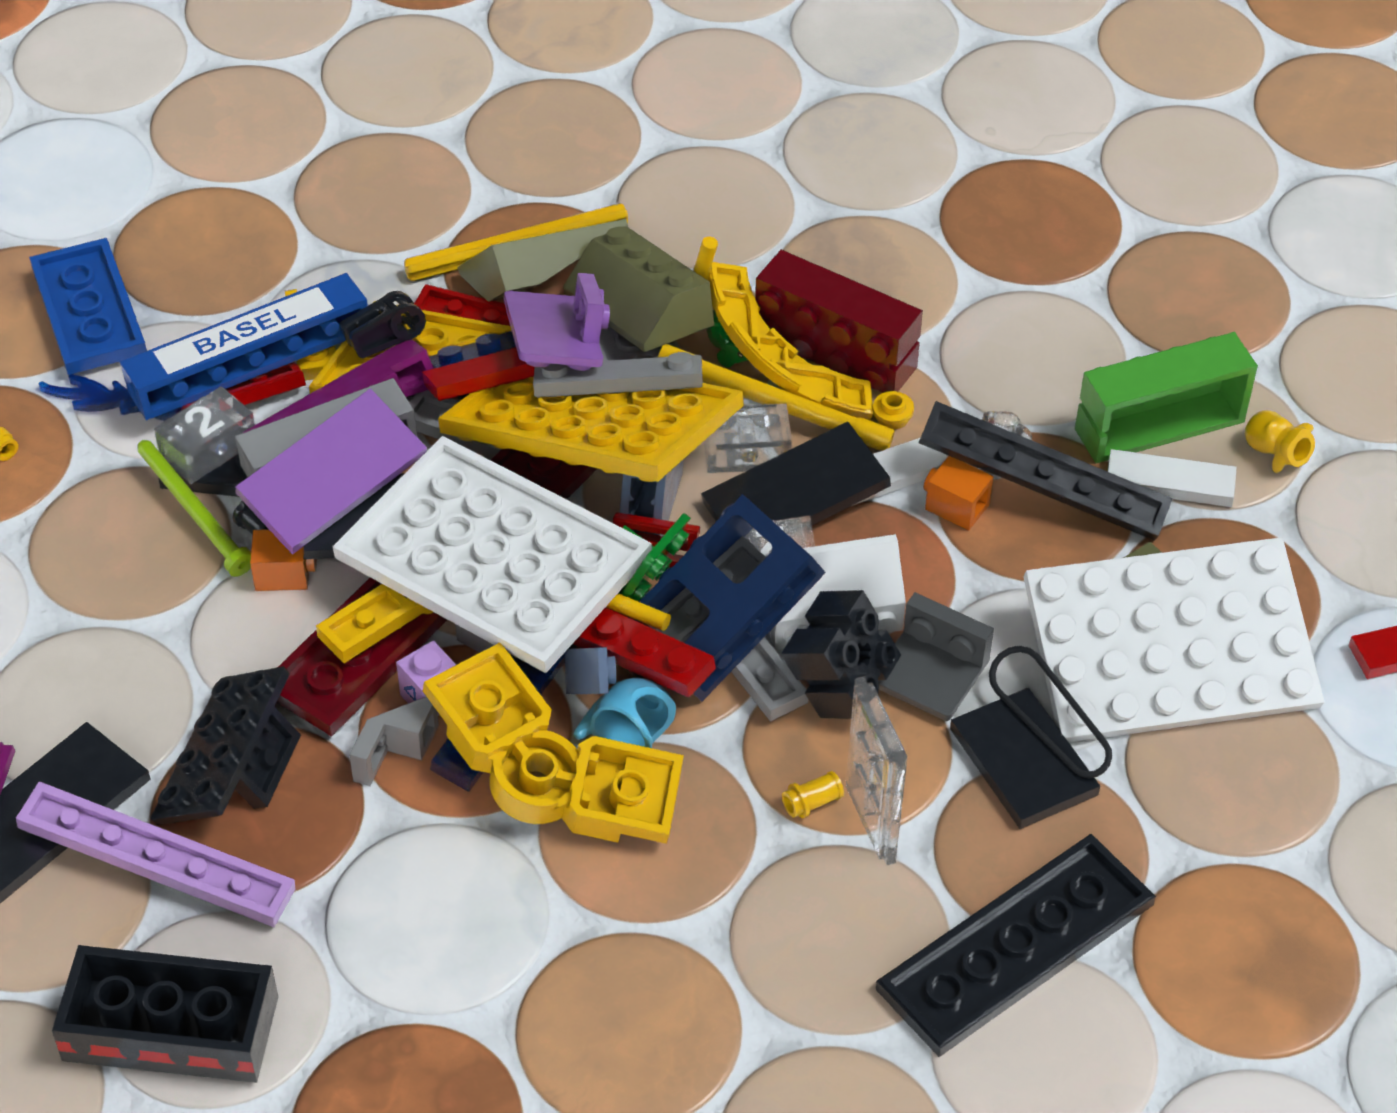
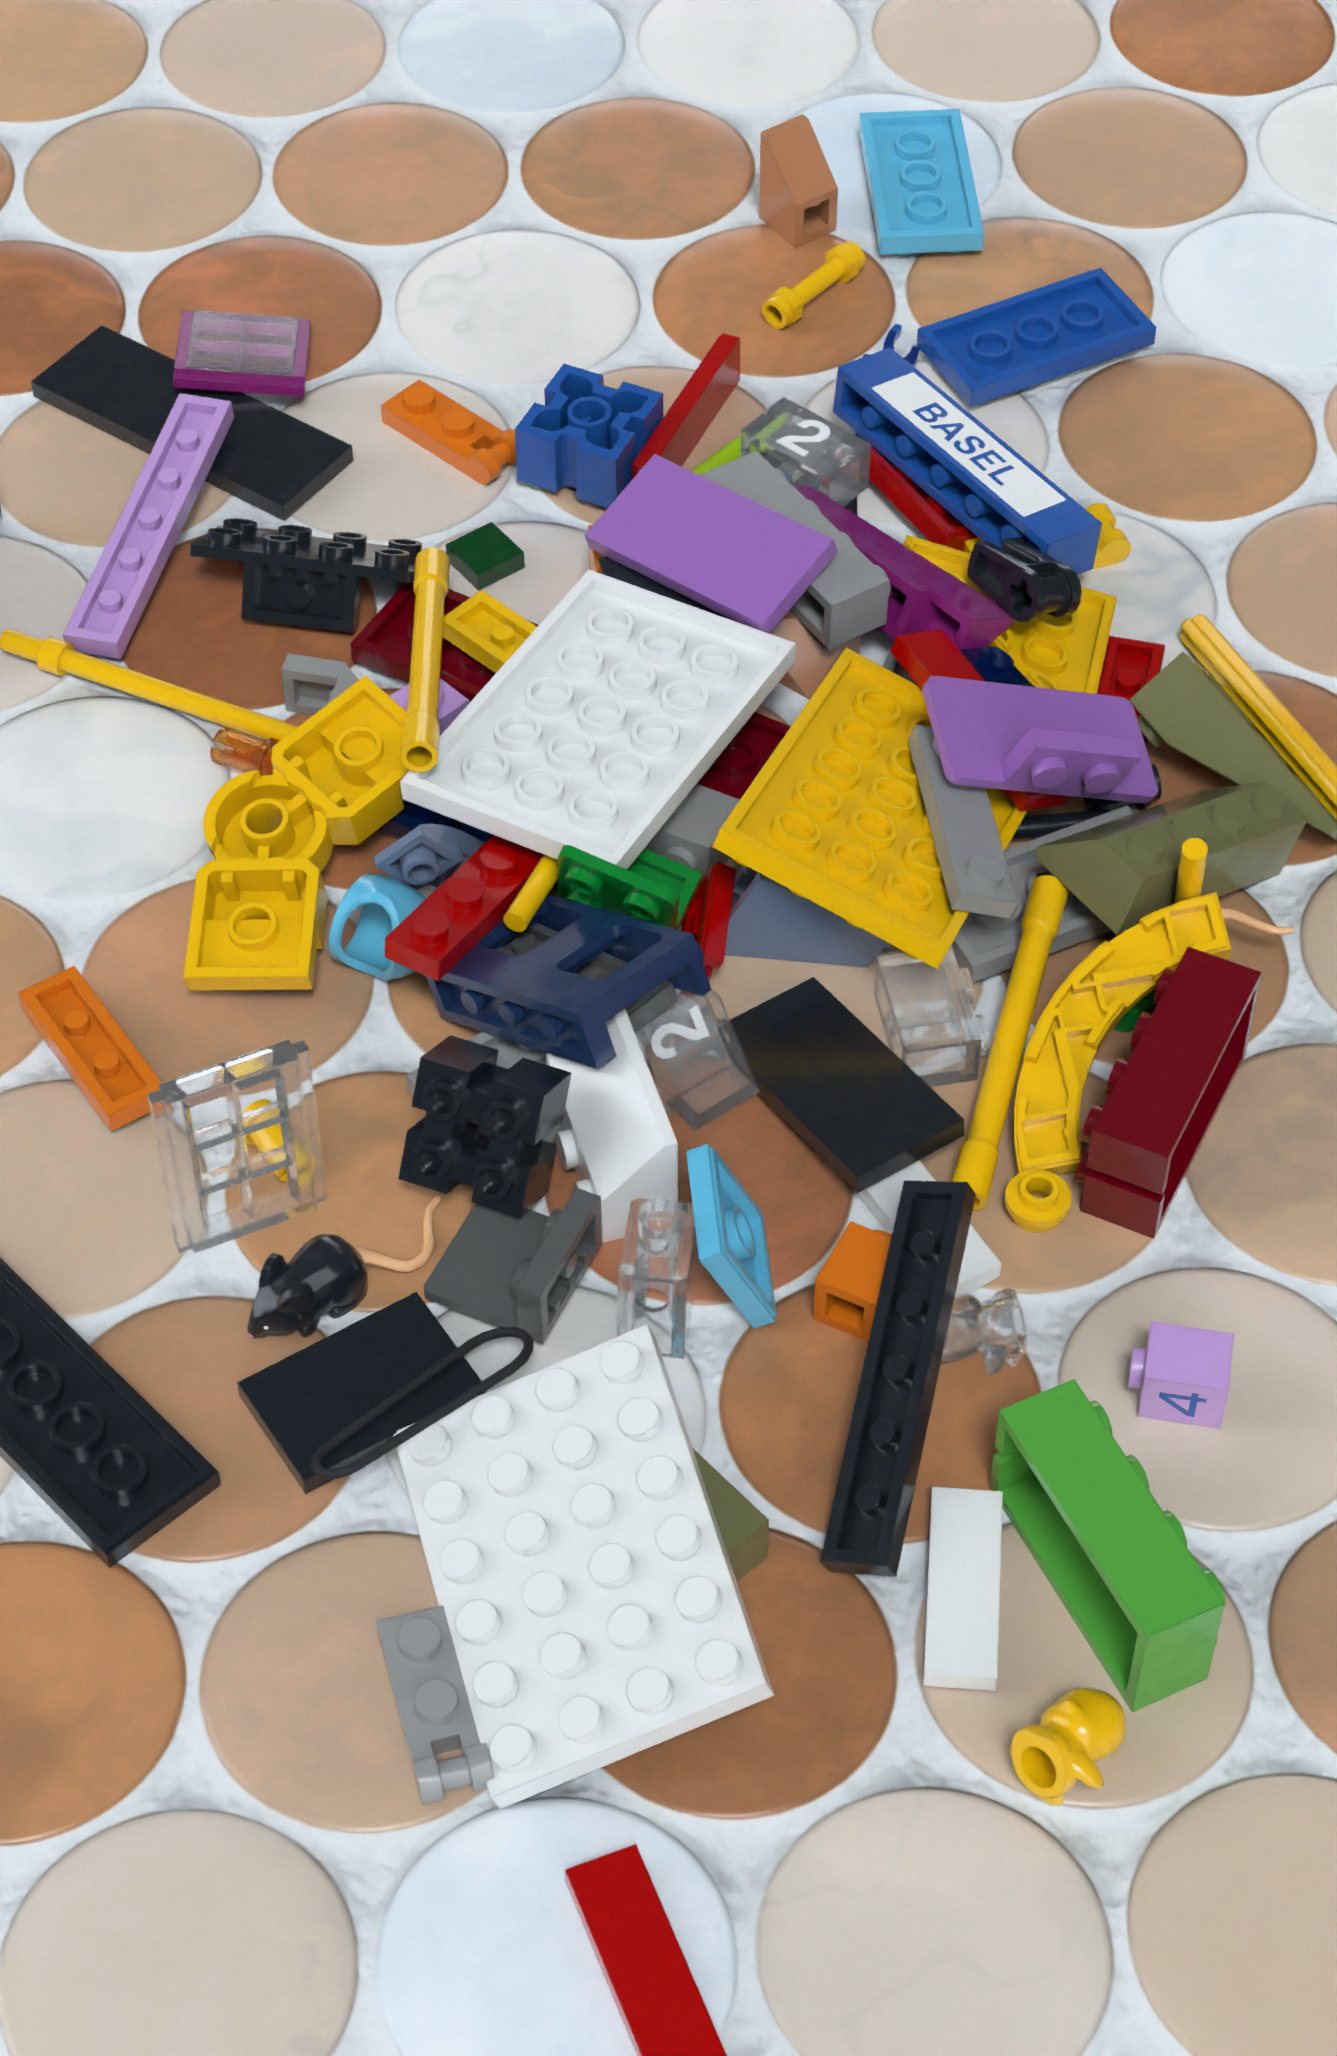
camera: 85 degrees right, 0 degrees up
(82, 659) = (450, 431): none -> orange plate
(126, 508) = (695, 405): none -> red tile
(139, 559) = (585, 435): none -> blue brick
(234, 647) = (485, 555): none -> dark green tile
(288, 927) = (61, 658): none -> yellow bar
(429, 799) = (248, 751): none -> clear orange pin
(499, 641) = (421, 725): none -> yellow piece
(716, 902) = (91, 1046): none -> orange plate
(938, 771) = (321, 1280): none -> black animal
(939, 538) = (731, 1236): none -> medium azure tile
(959, 577) = (662, 1255): none -> clear torso
(1033, 357) = (1182, 1374): none -> lavender brick
(1258, 730) = (433, 1703): none -> light grey plate

